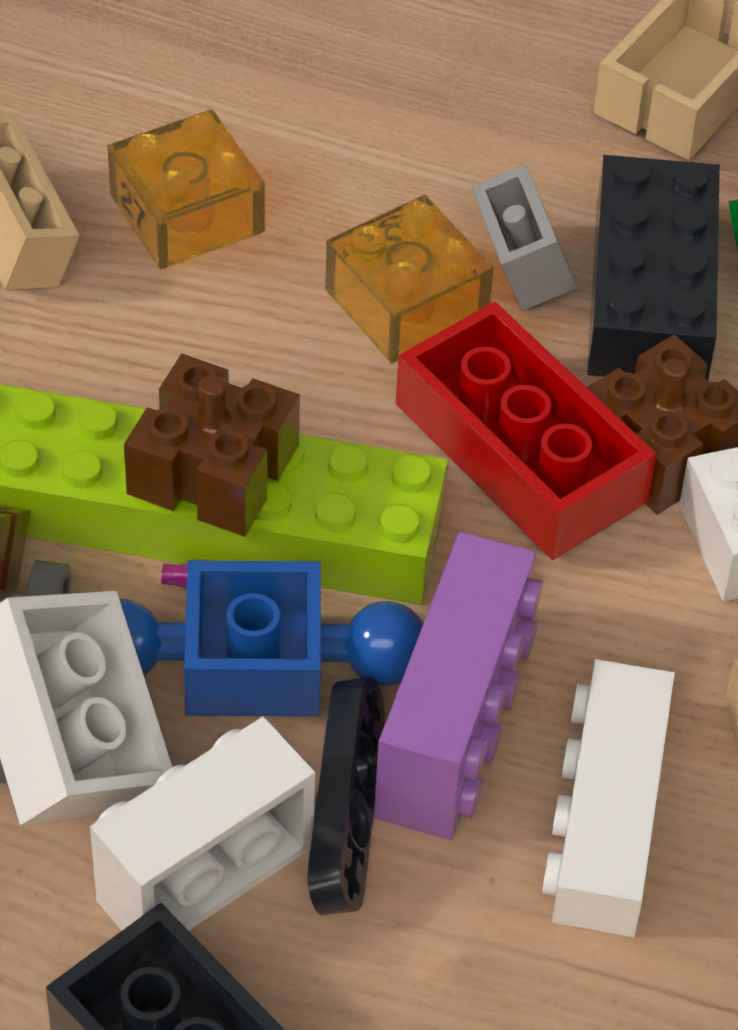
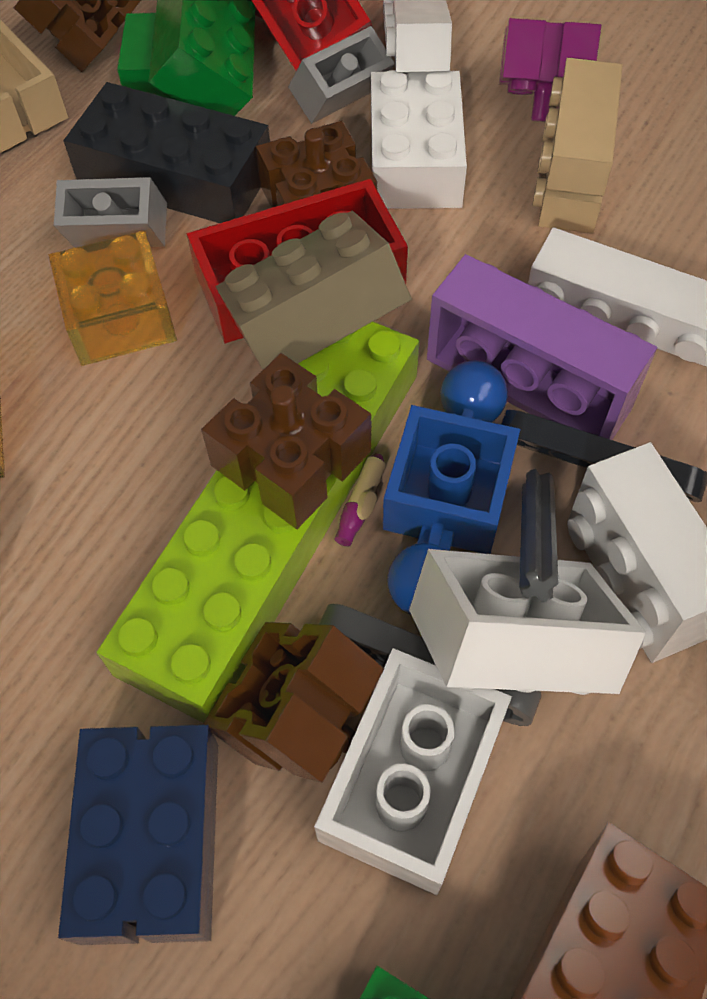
camera: 70 degrees left, 10 degrees up
(172, 702) = (538, 537): none -> dark grey axle
(424, 420) = (314, 290): none -> dark tan brick

